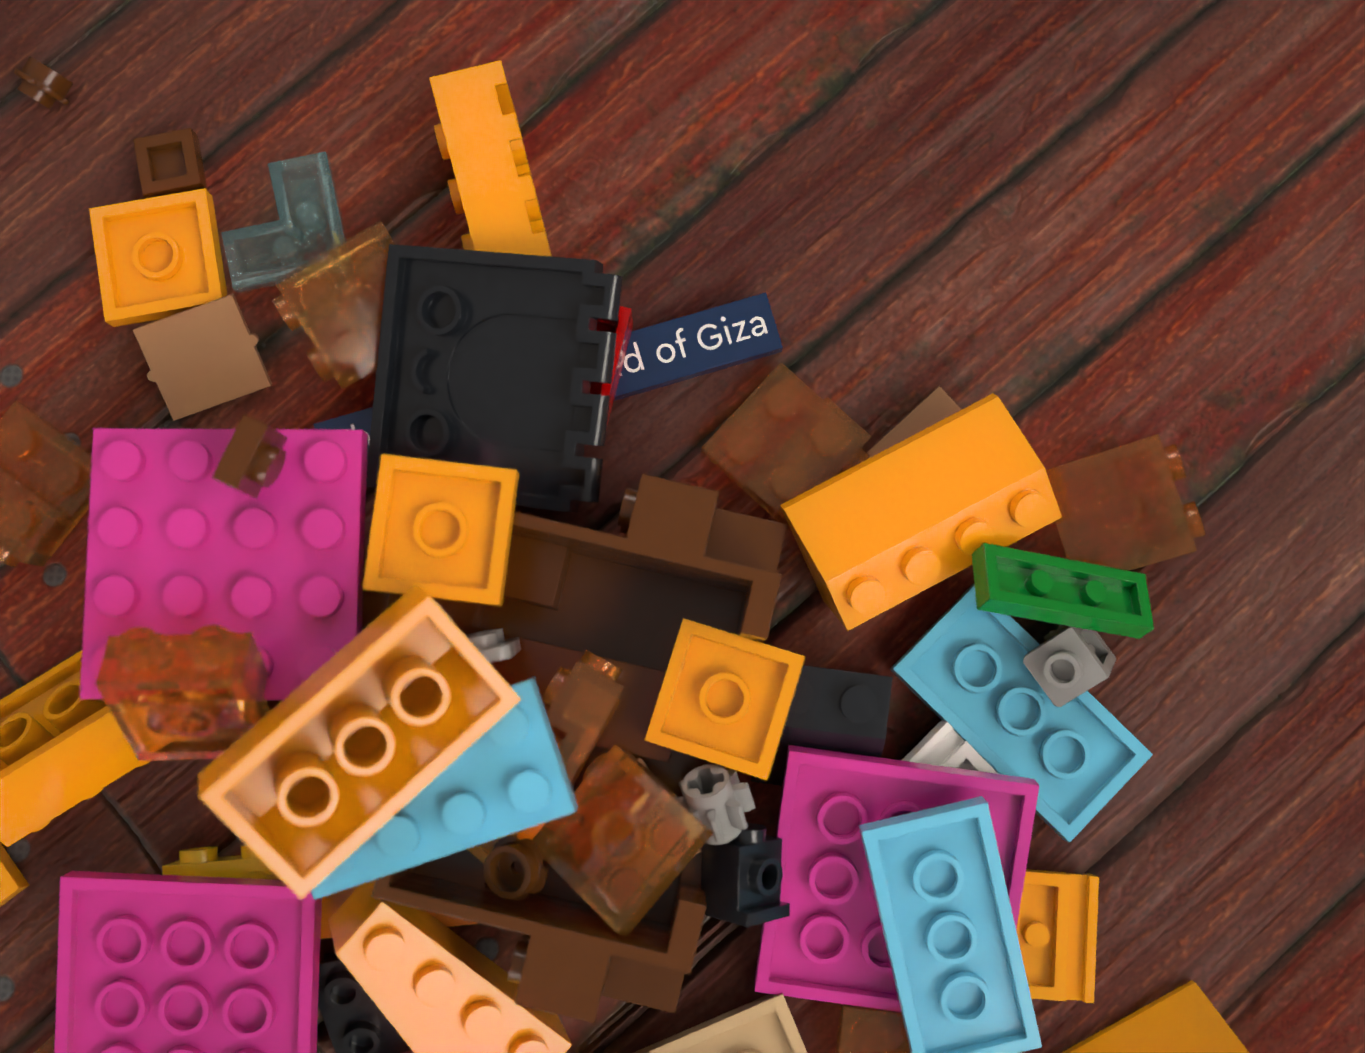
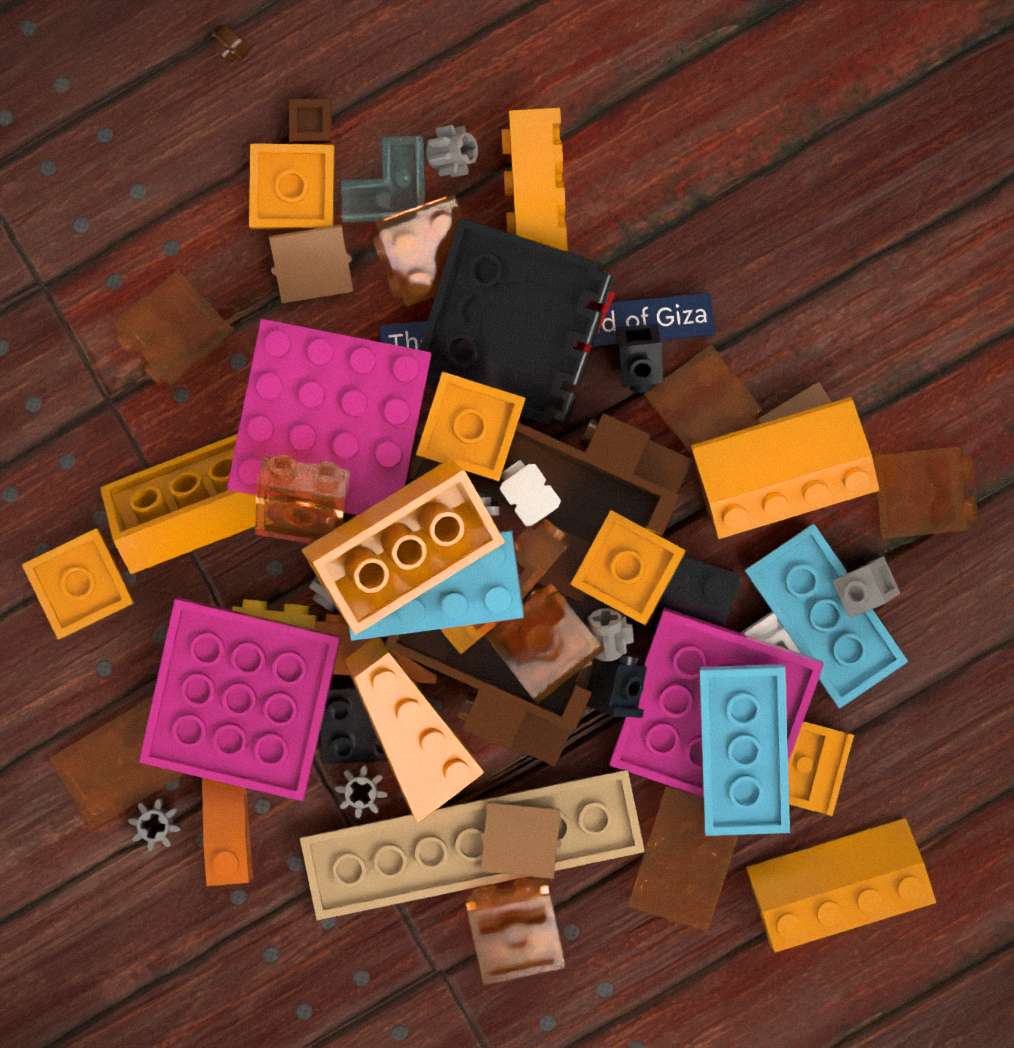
camera: 15 degrees right, 5 degrees up
(251, 457) = (366, 361): reddish brown plate -> none
(371, 166) = (452, 151): none -> light grey gear
(501, 872) = (463, 649): reddish brown plate -> none
(554, 616) = (526, 490): none -> white brick
(682, 379) = (640, 357): none -> black brick
(1061, 591) = (867, 540): green plate -> none

